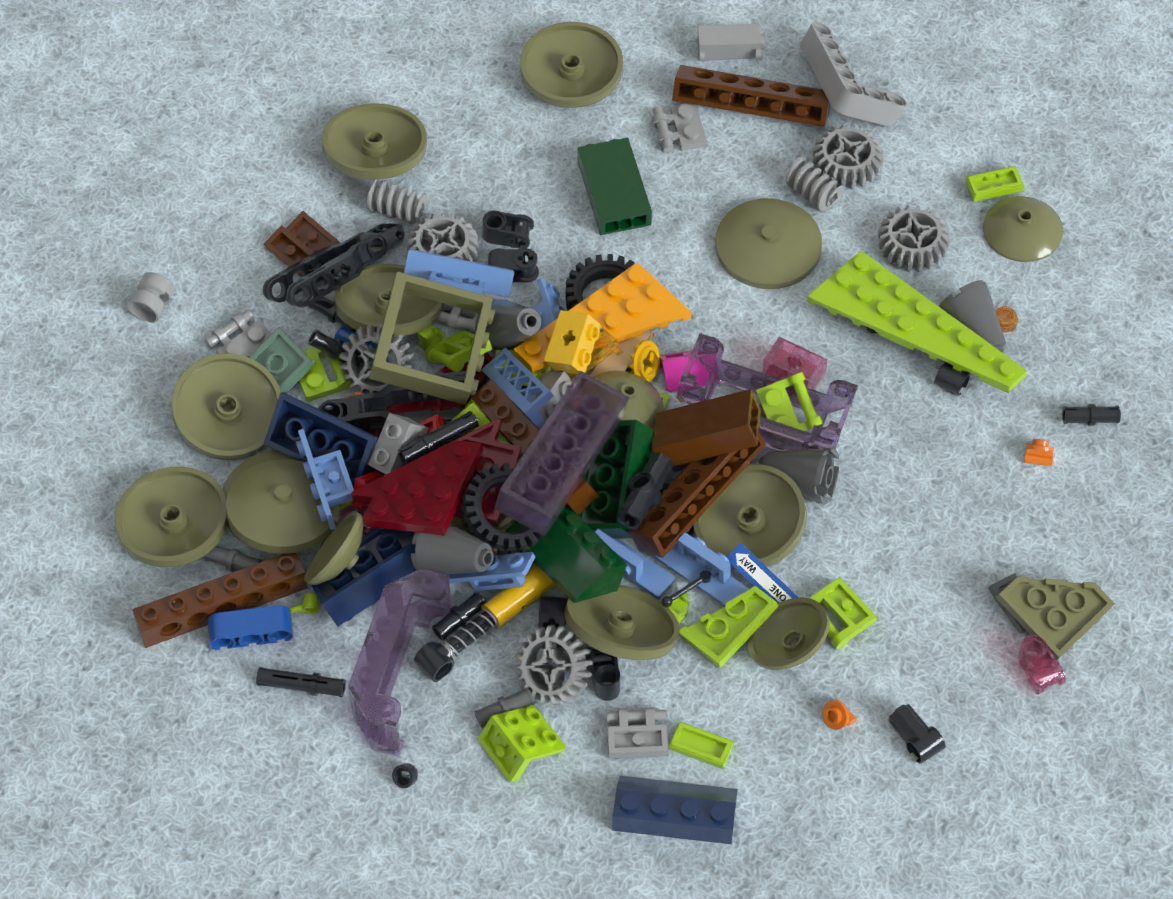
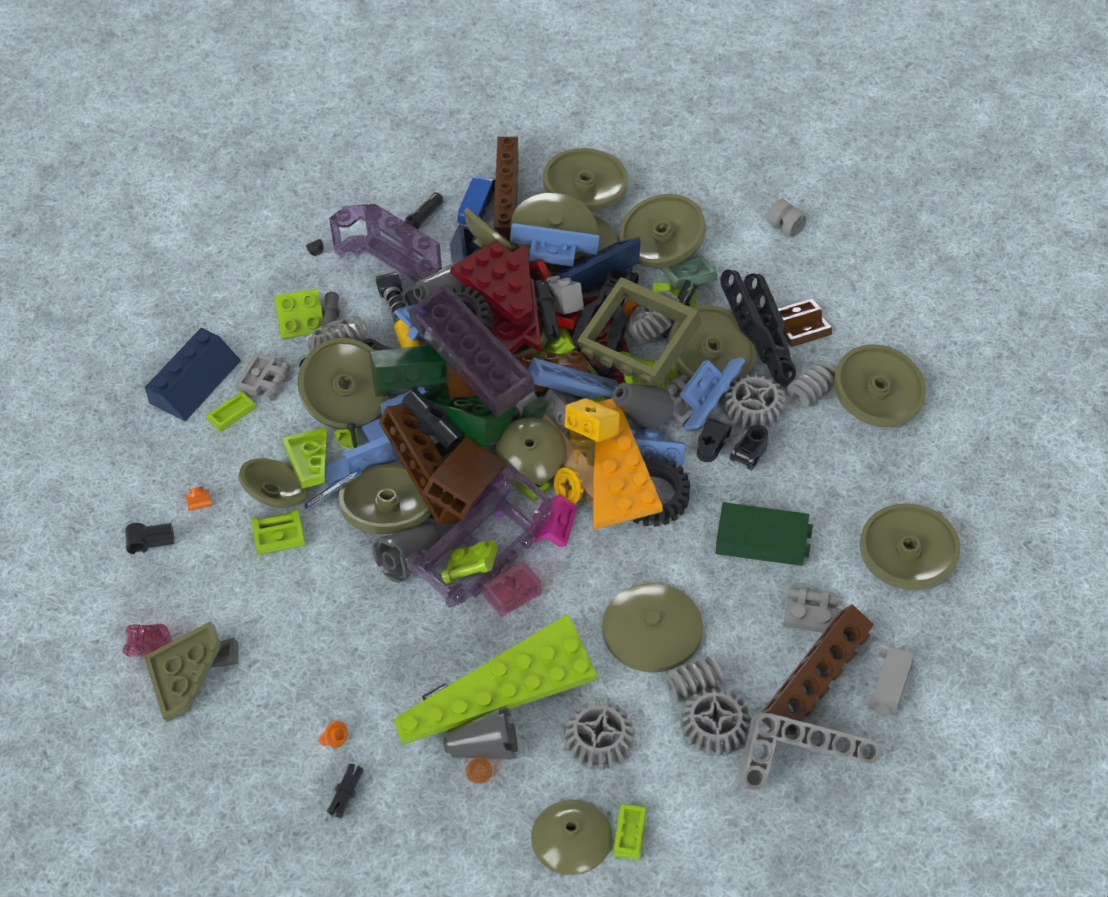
camera: 115 degrees right, 5 degrees down
(244, 343) = (720, 260): light grey plate -> none

